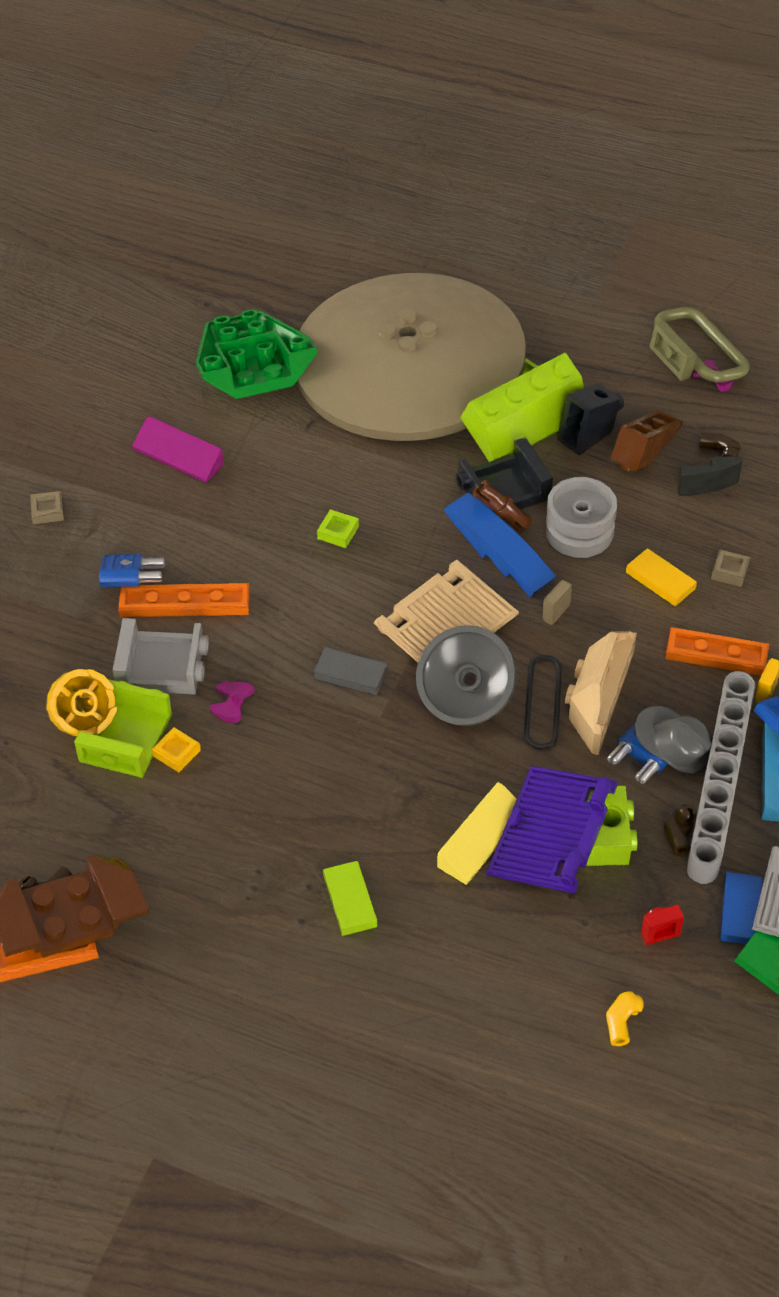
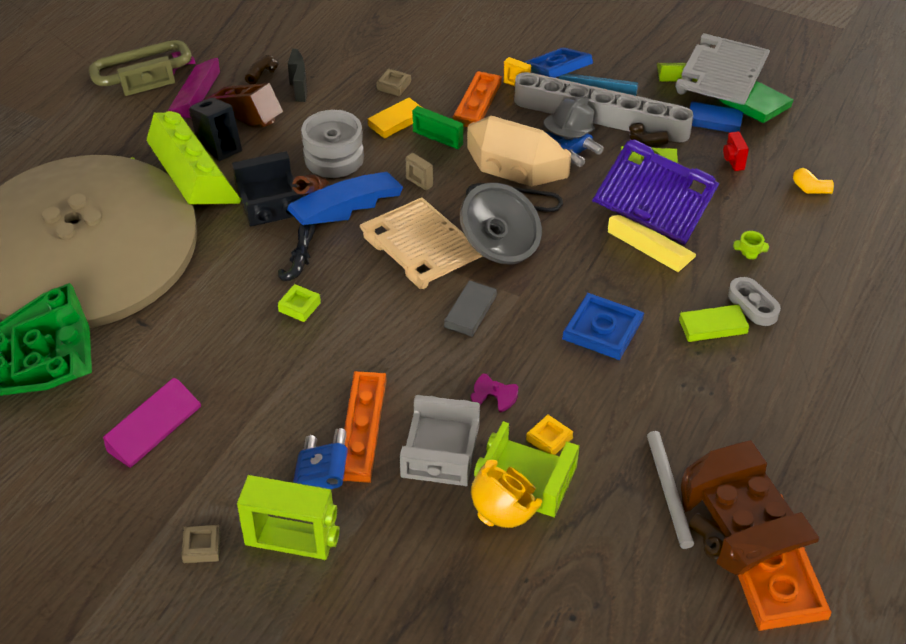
camera: 85 degrees left, 5 degrees down
(51, 547) = (289, 500): none -> lime window
(120, 851) = (670, 490): none -> light grey bar
(337, 792) = (603, 326): none -> blue tile
(380, 936) = (754, 301): none -> light grey plate
(410, 520) = (299, 255): none -> black piece
(489, 931) = (751, 244): none -> lime plate
(642, 607) = (437, 127): none -> green tile
(670, 398) = (196, 87): none -> magenta slope

